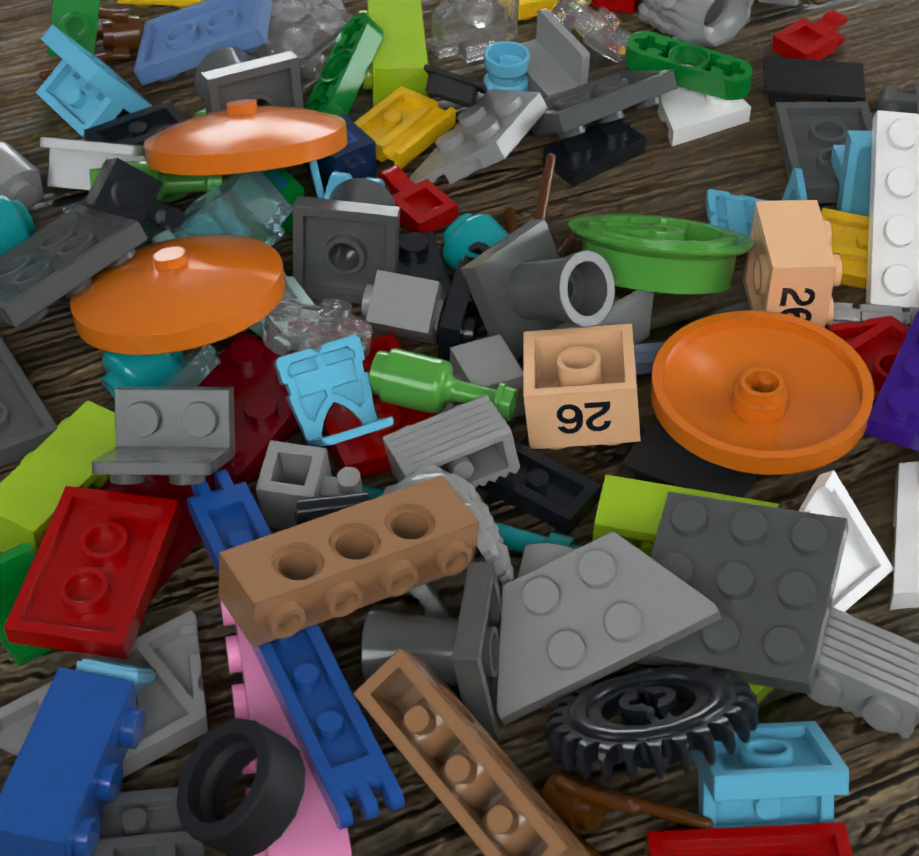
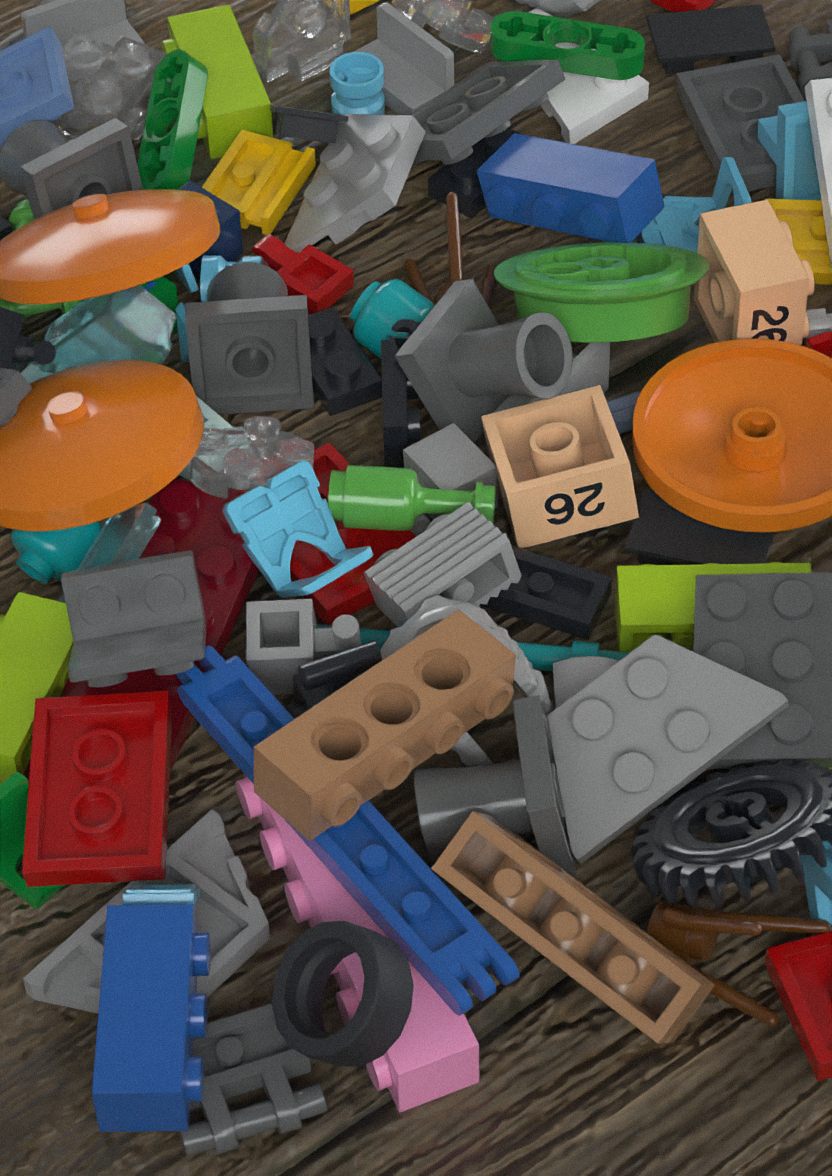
camera: 10 degrees left, 5 degrees up
(404, 306) = (336, 409): light grey brick -> none
(659, 172) = (571, 188): none -> blue brick

